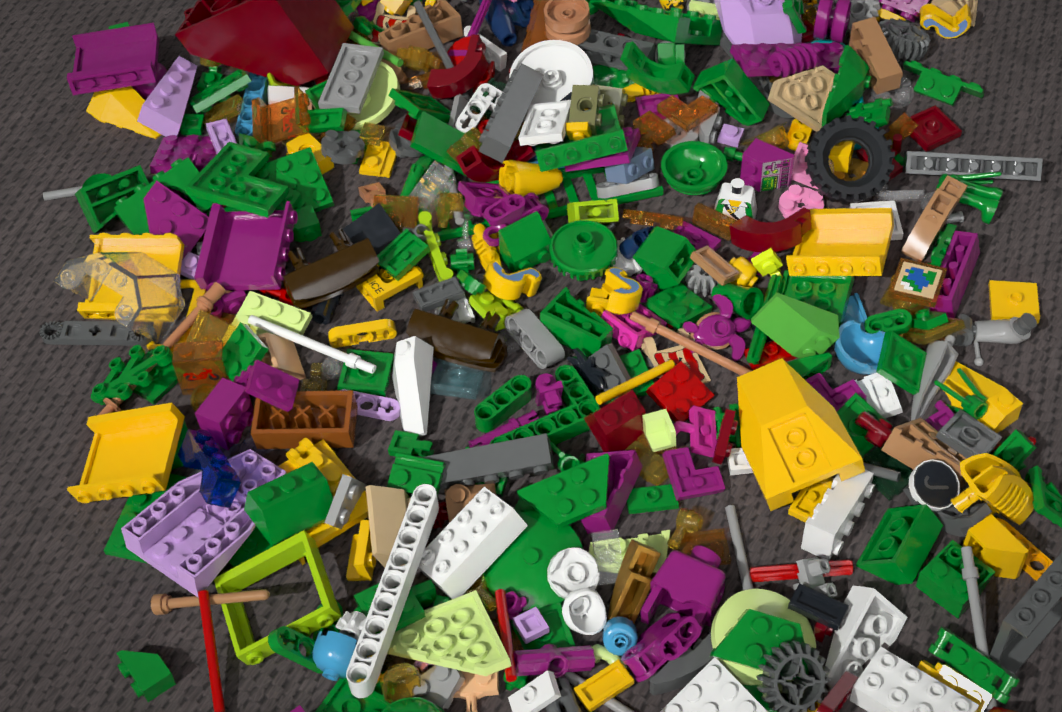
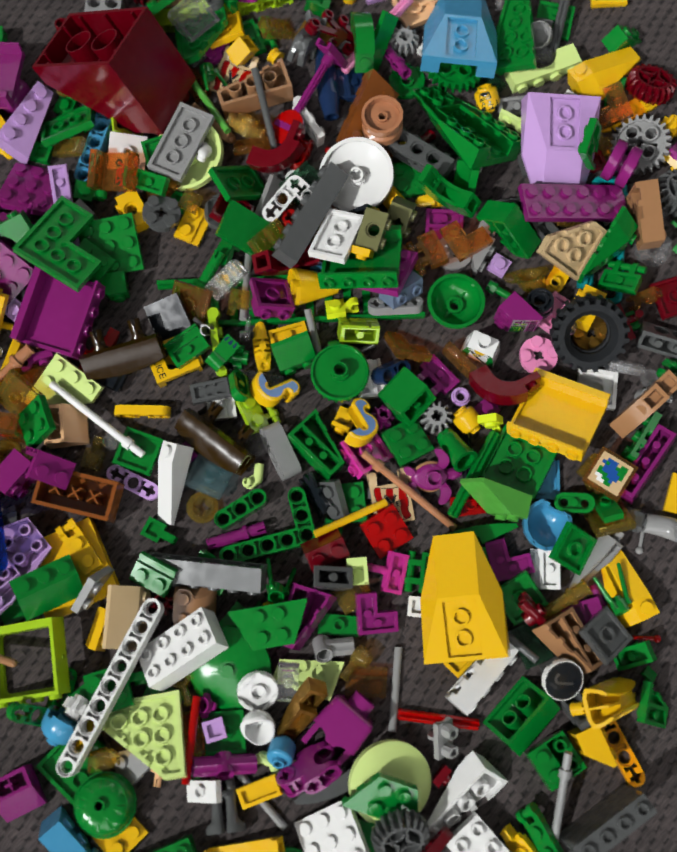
camera: 10 degrees right, 25 degrees up
(368, 191) = (179, 266): nougat plate -> none
(377, 85) = (204, 152): none -> white arm
(447, 249) = (223, 353): none -> green leg
(447, 408) = (195, 514): none -> clear yellow gear
(511, 210) = (288, 326): magenta piece -> none
(513, 370) = (255, 479): none -> yellowish green arm
(548, 393) = (278, 511): magenta hips -> none
(562, 197) = (338, 308): none -> neon yellow plate
(633, 435) = (332, 578): none -> dark grey slope
(653, 518) = (327, 648): none -> light grey piece
(714, 265) = (445, 415): medium nougat tile -> none
(727, 250) = (460, 390): none -> lavender plate
(727, 427) = (405, 596): dark red plate -> none
(790, 144) = (541, 295): none -> black wheel
(793, 60) = (570, 215): magenta piece -> none
(818, 607) = (439, 767): black tile -> none
(919, 408) = (571, 596): none -> clear yellow pin

